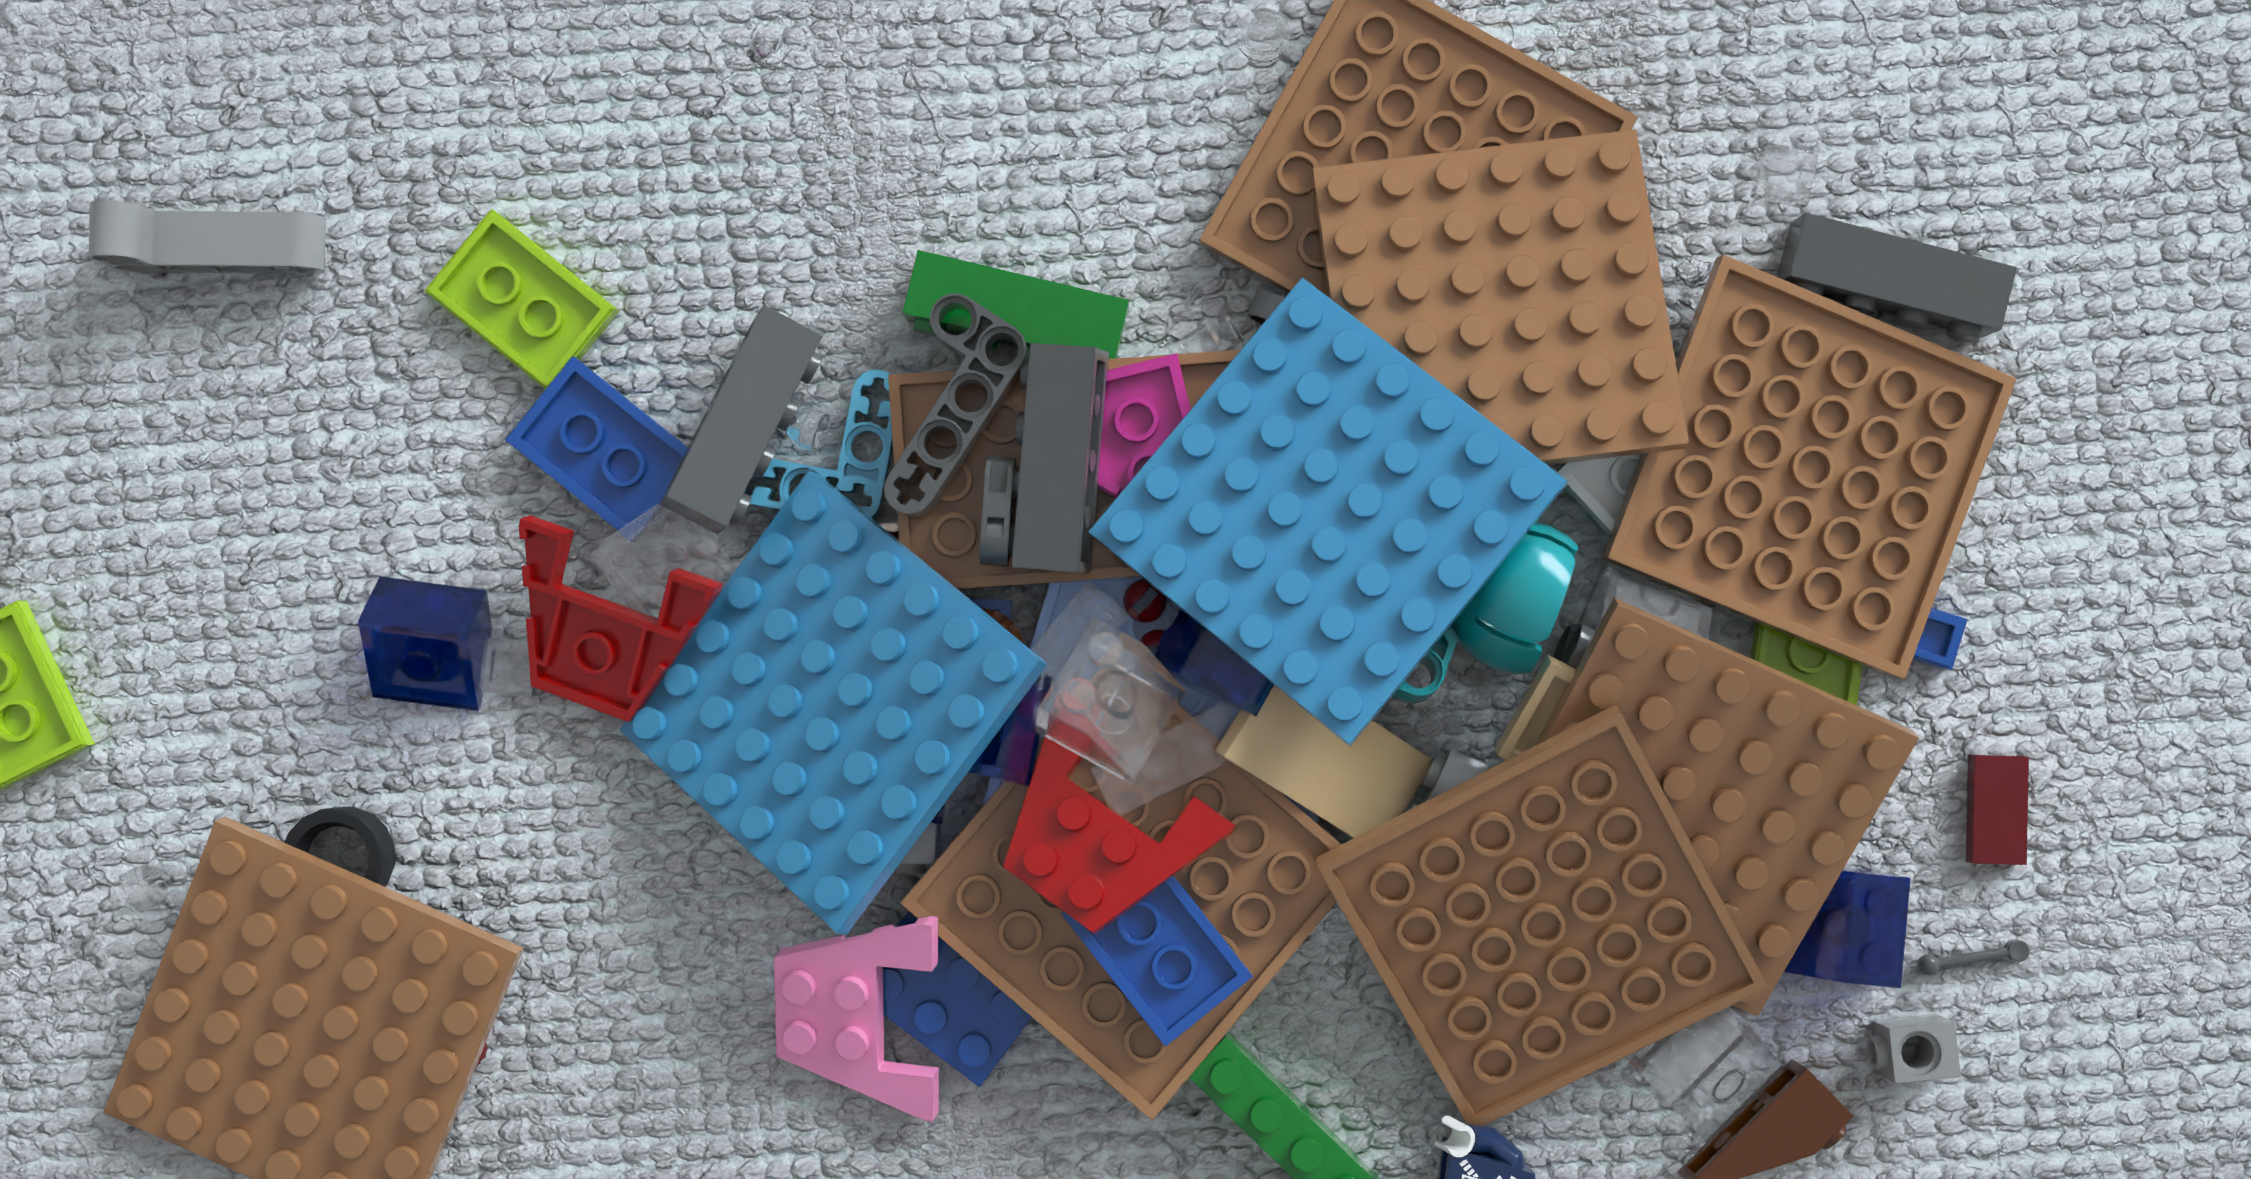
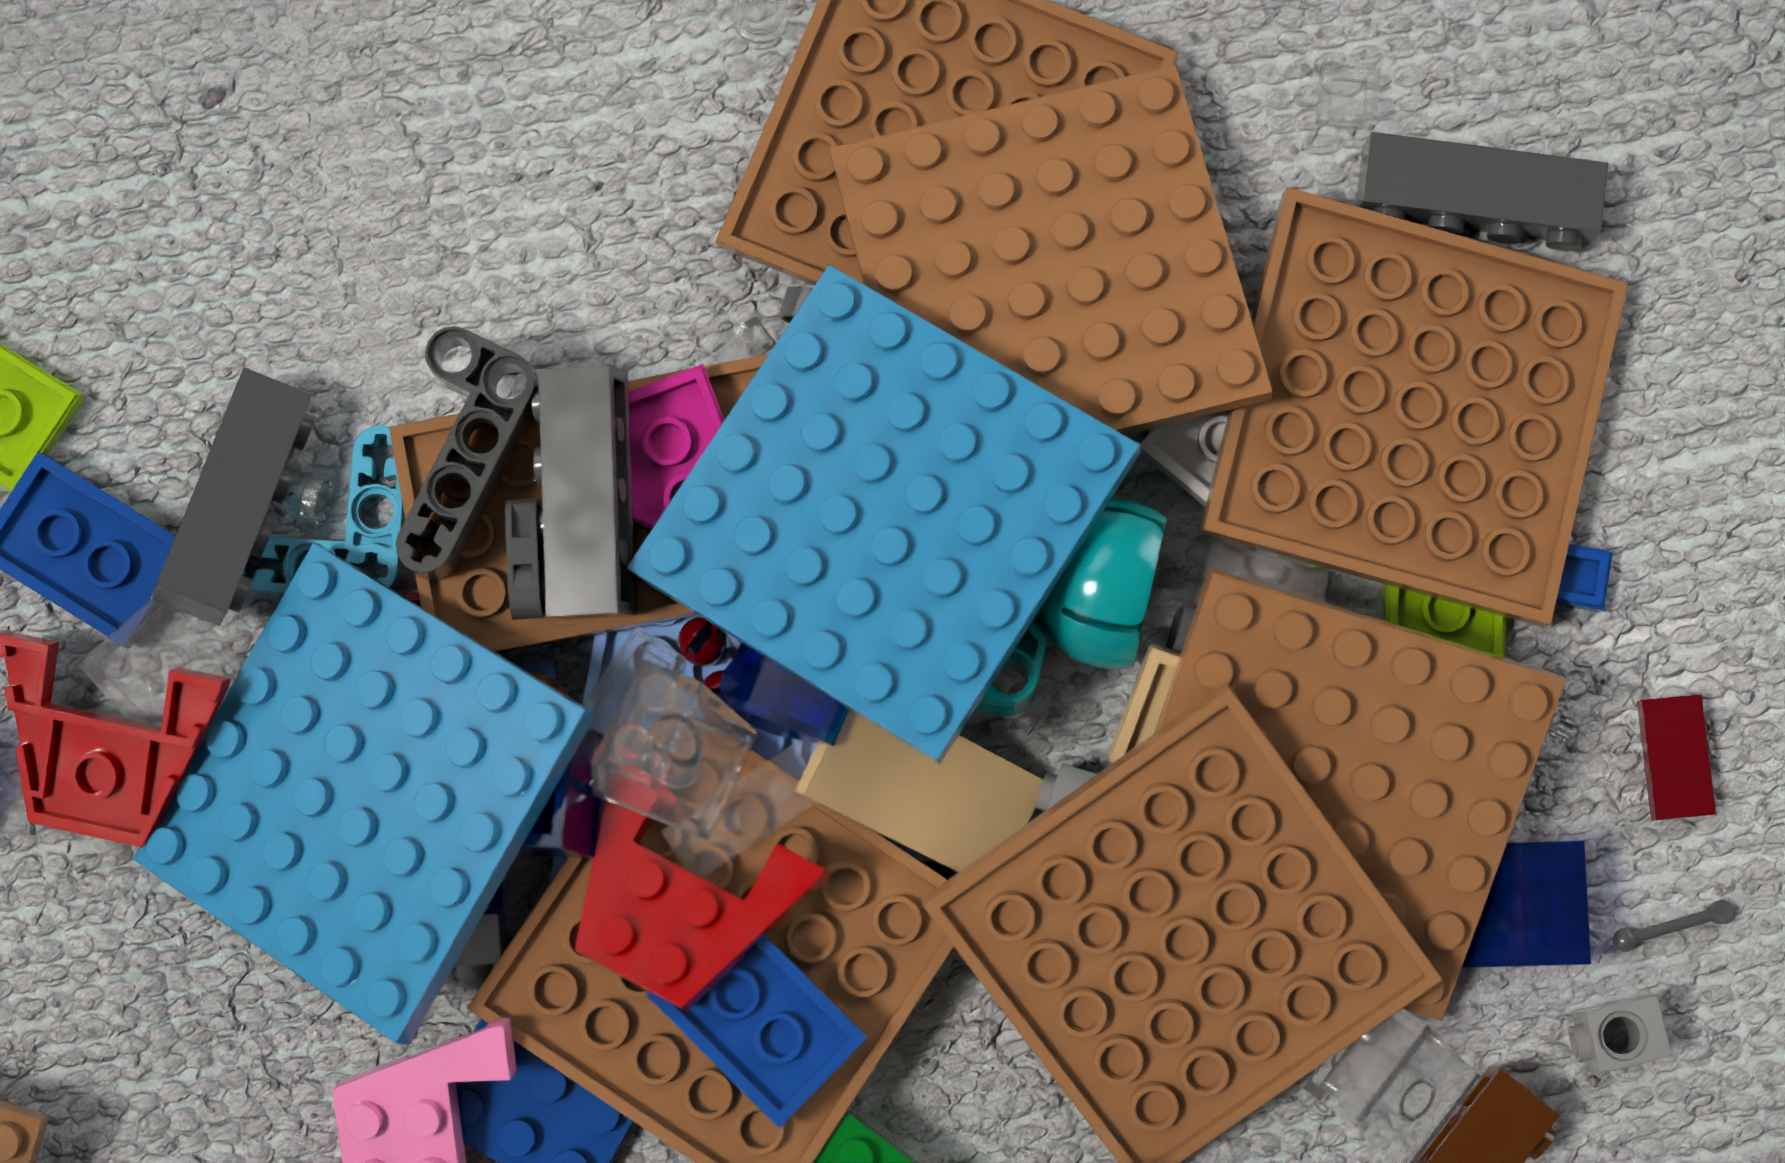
camera: 15 degrees left, 5 degrees down
(1035, 307) = (537, 331): green brick -> none

